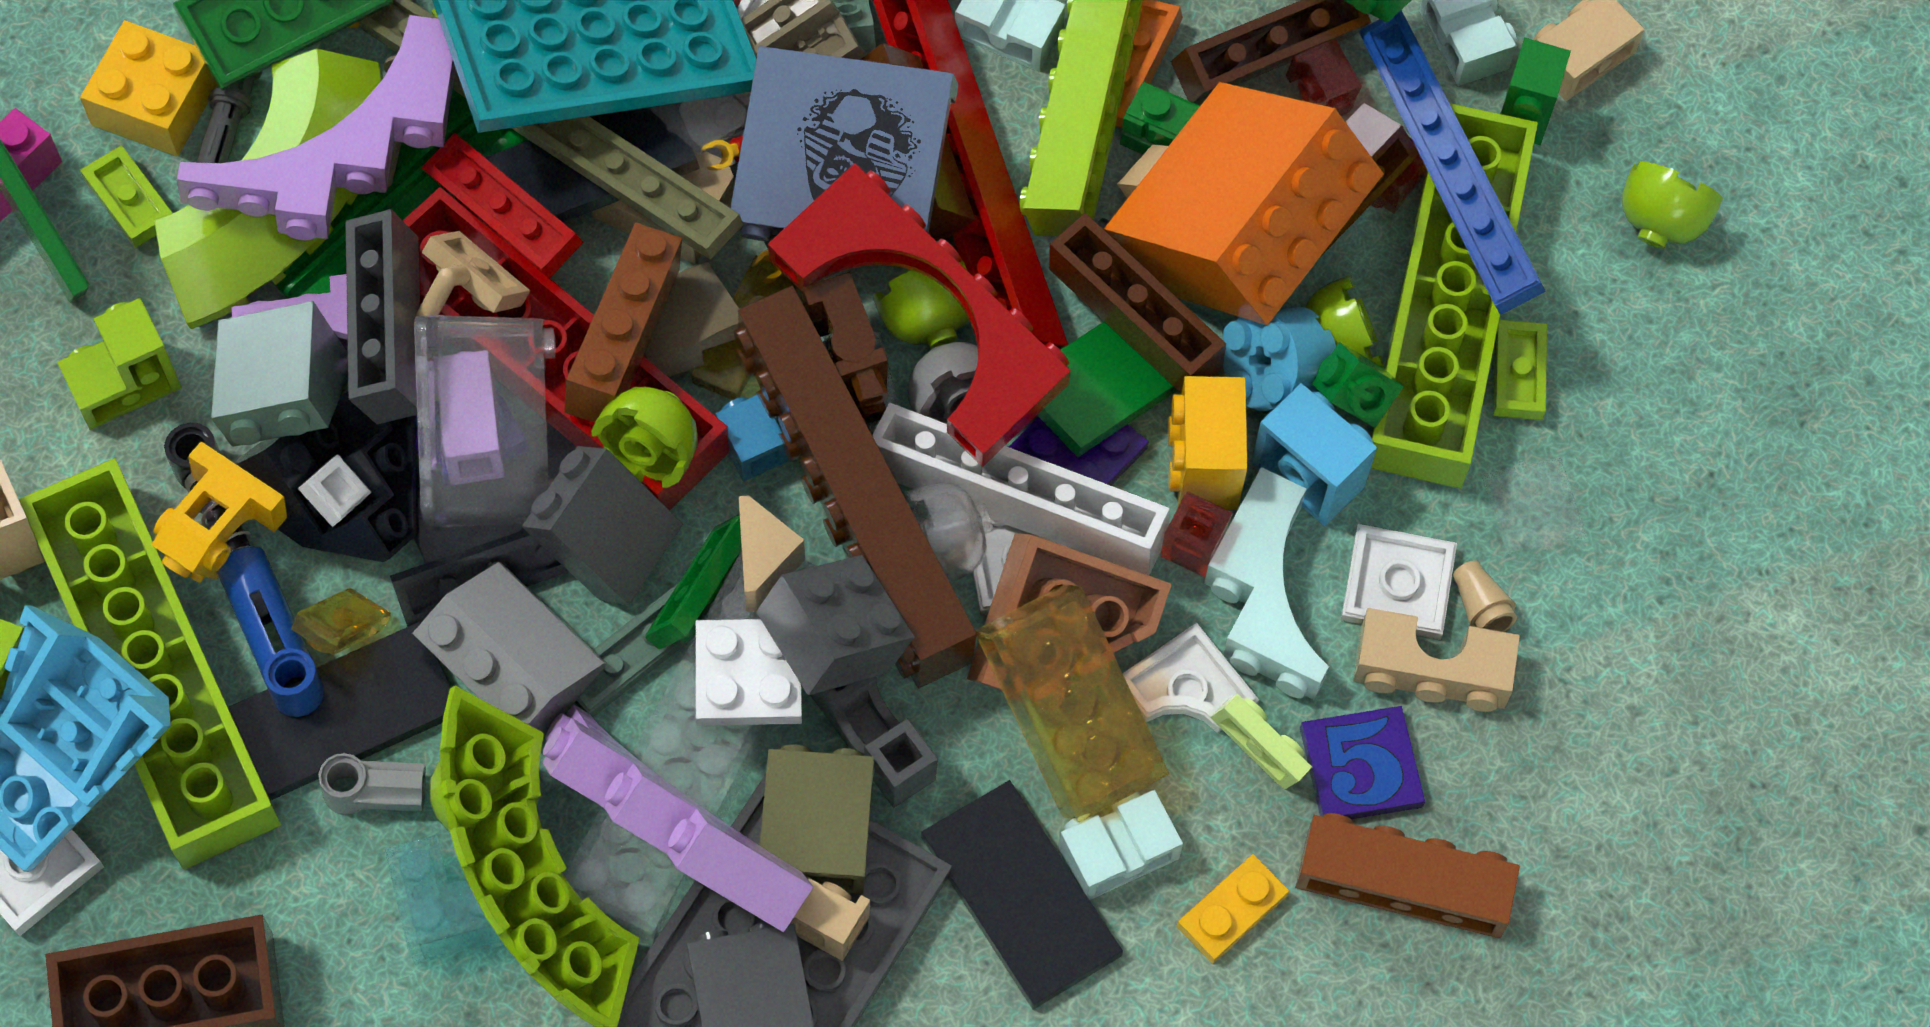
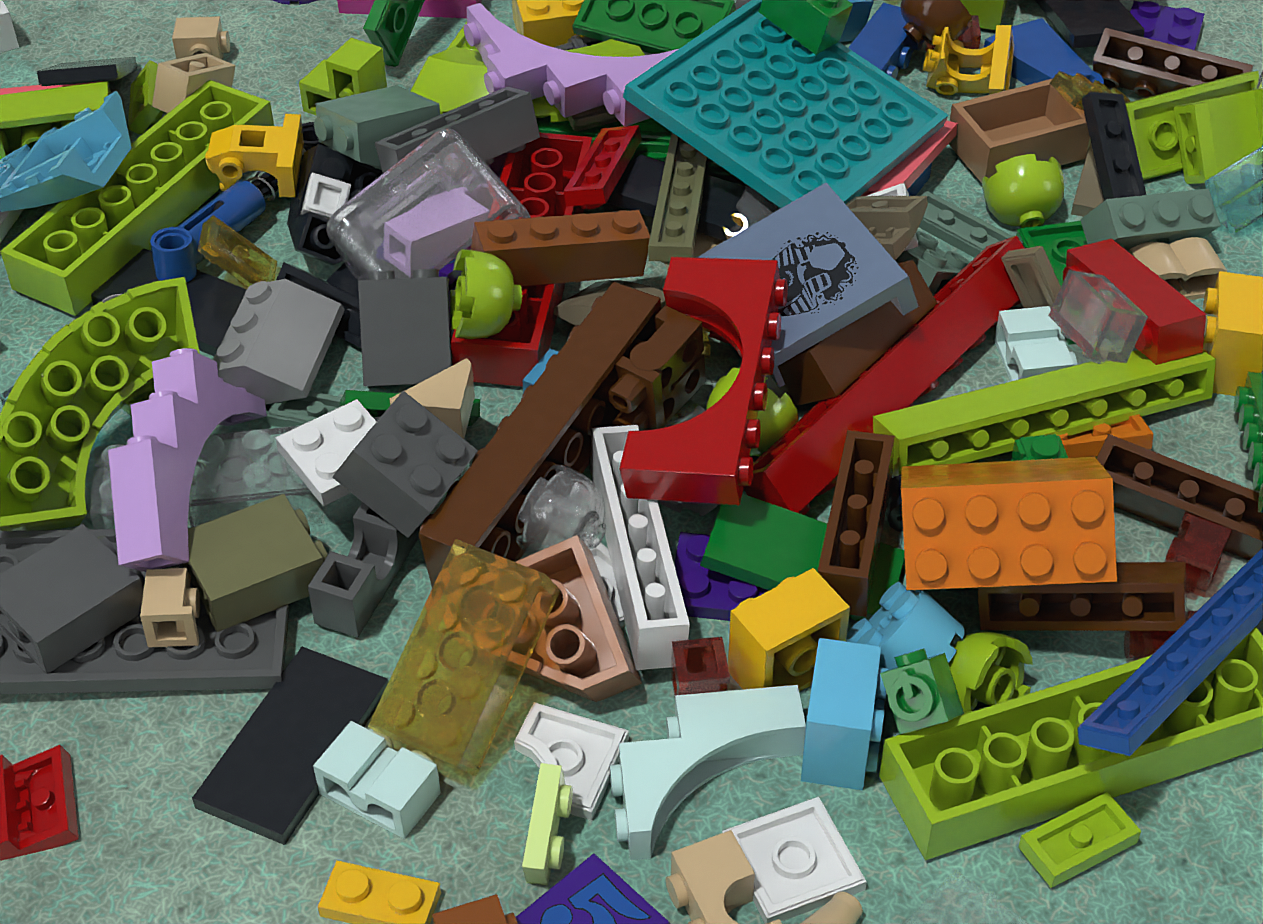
camera: 60 degrees right, 20 degrees down
(467, 265) = (534, 168): tan plate -> none

